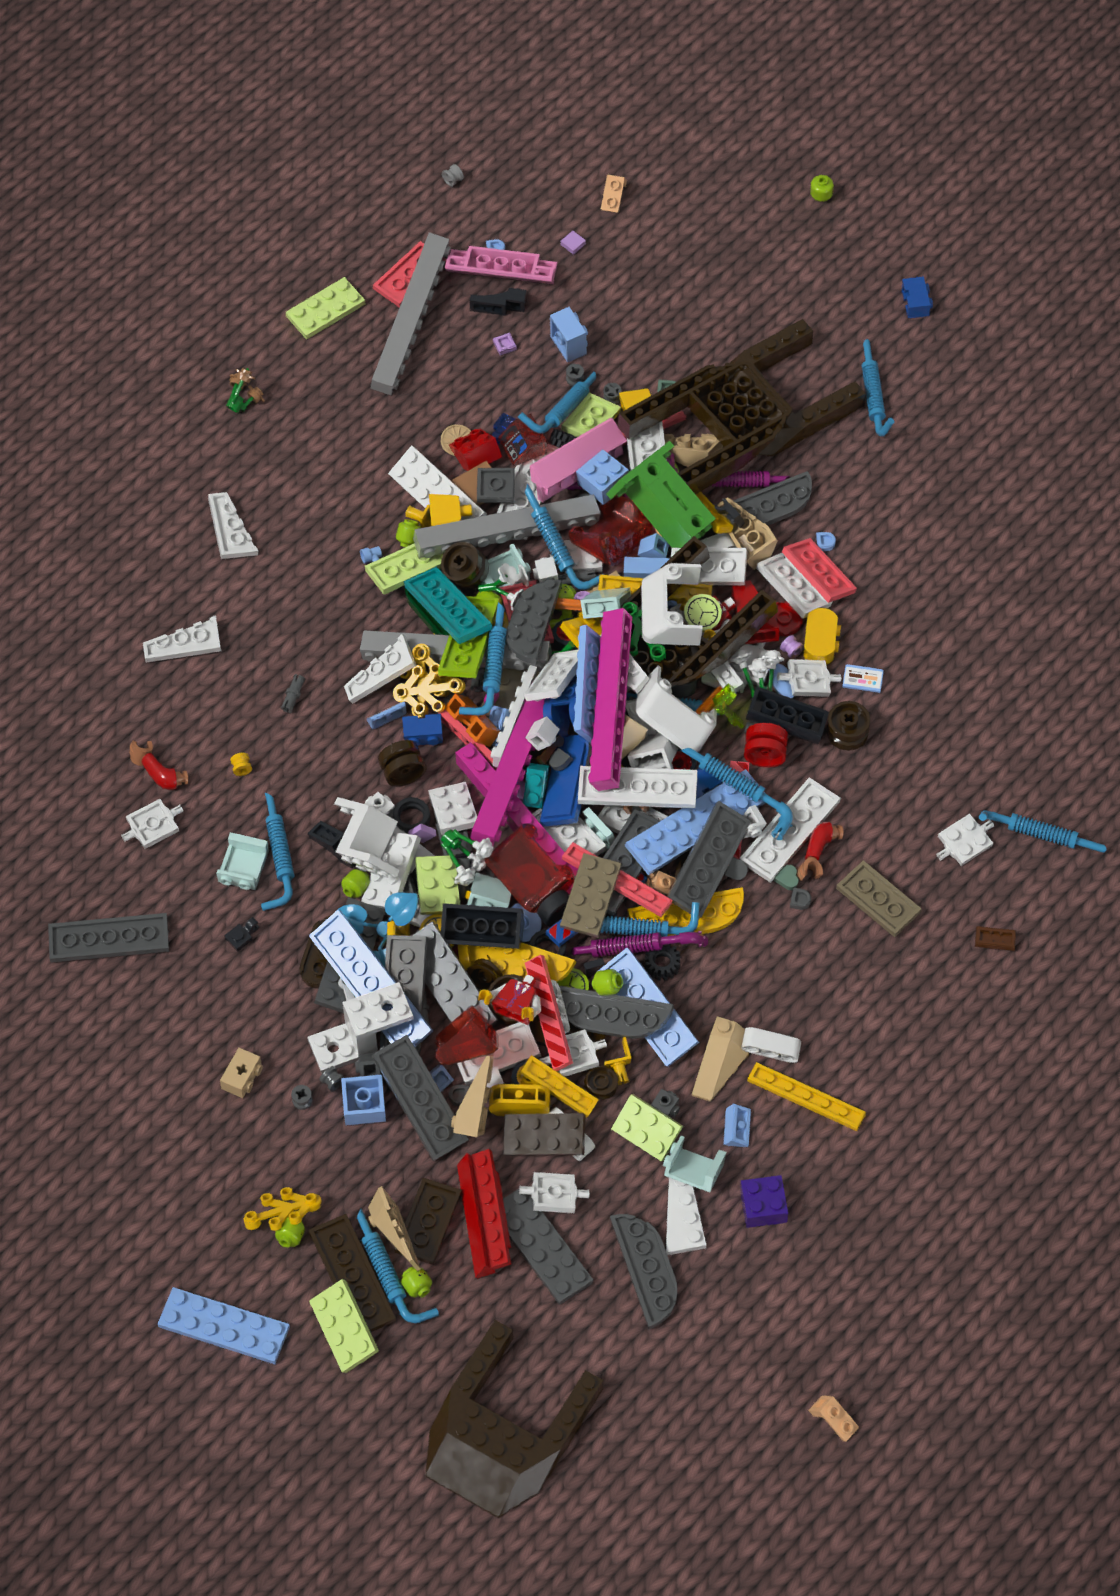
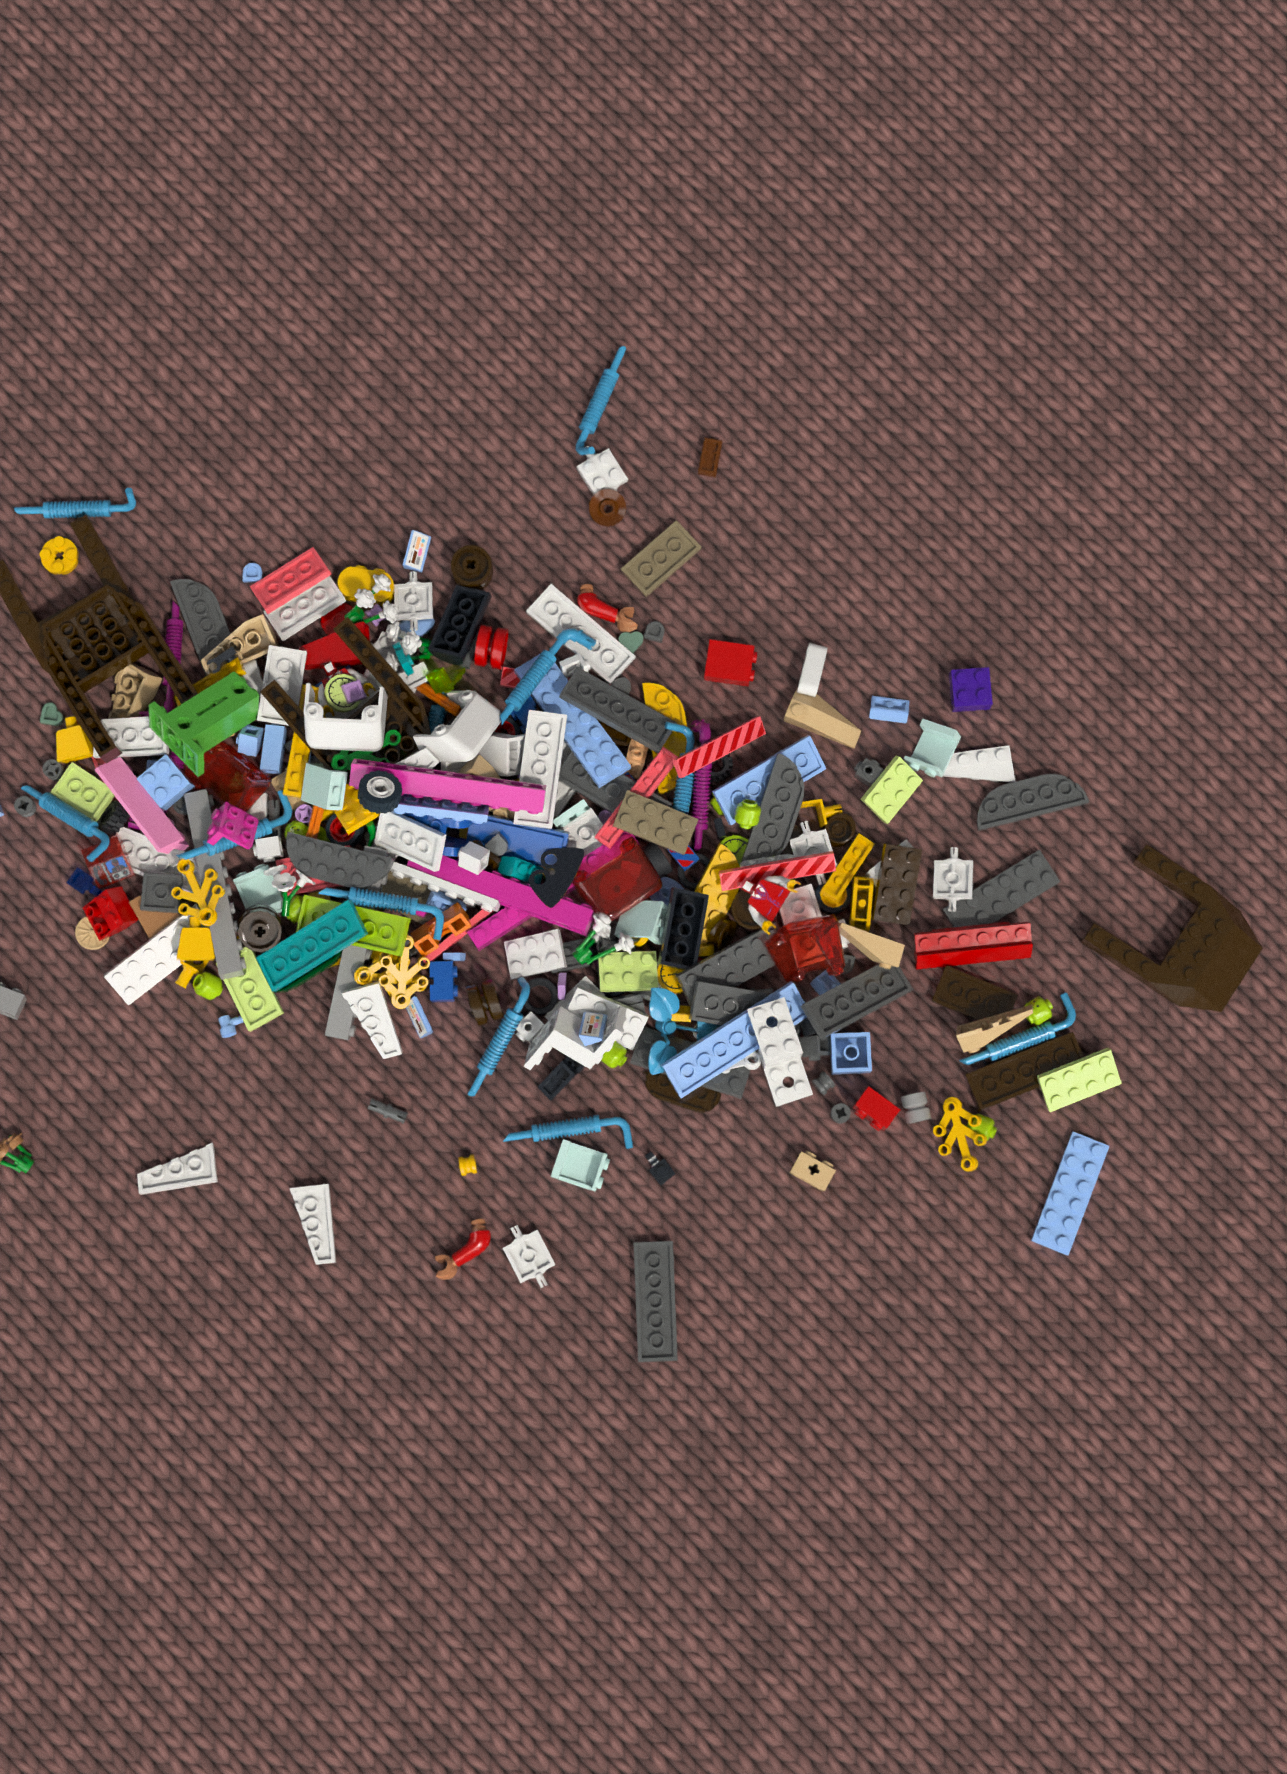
camera: 85 degrees left, 20 degrees up
(305, 1124) = (875, 1109): none -> red brick
(309, 1166) = (915, 1107): none -> light grey wheel
(368, 780) = (501, 1038): none -> dark azure piece
(376, 846) = (592, 1028): none -> slope
(447, 738) = (454, 956): none -> light blue tile
(473, 515) = (199, 894): none -> yellow plant
(536, 816) = (565, 869): none -> black piece
(559, 529) = (232, 824): none -> dark pink bracket
(595, 639) = (379, 792): none -> black wheel
(676, 952) = (719, 747): none -> coral tile
(704, 618) = (353, 691): none -> lavender tile
(740, 663) = (405, 660): none -> teal plate
(772, 967) = (730, 663): none -> red brick
(798, 621) = (366, 599): none -> white plant
(806, 1096) = (862, 644): yellow tile -> none
(821, 373) = (59, 566): none -> yellow plate
(835, 1416) = (1178, 647): light nougat bracket -> none
(927, 837) = (614, 500): none -> reddish brown dish

